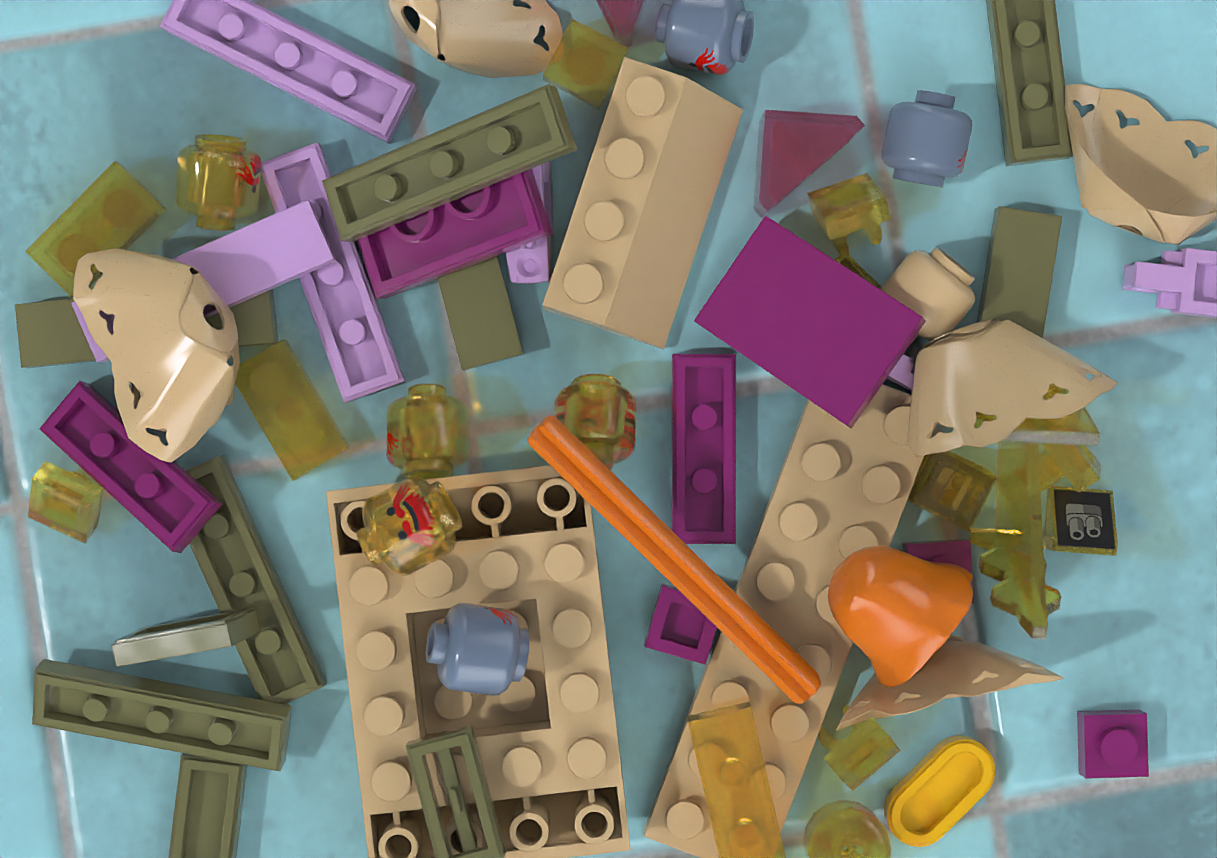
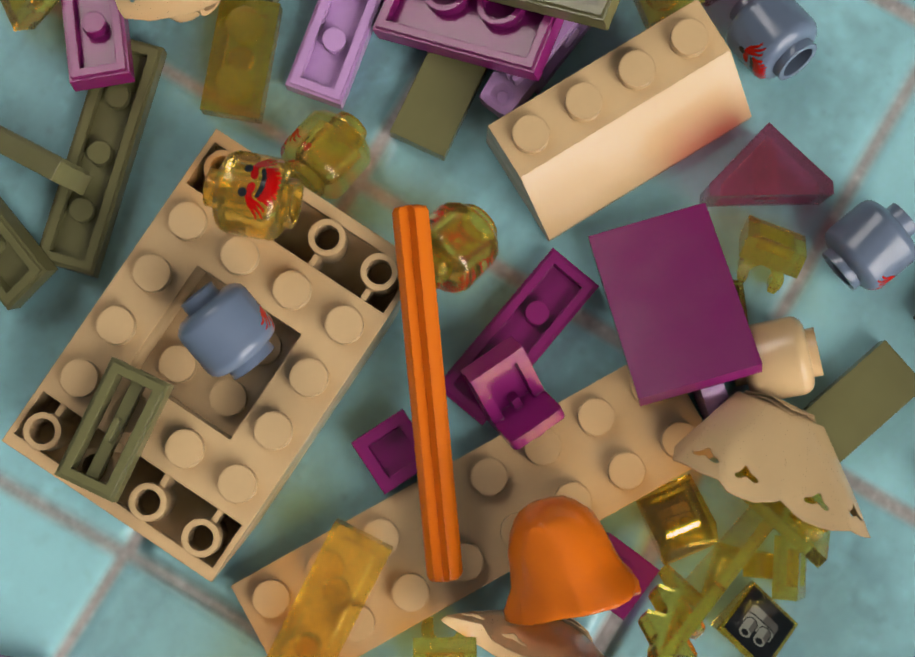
camera: 40 degrees right, 5 degrees down
(742, 503) = (512, 394): none -> magenta bracket

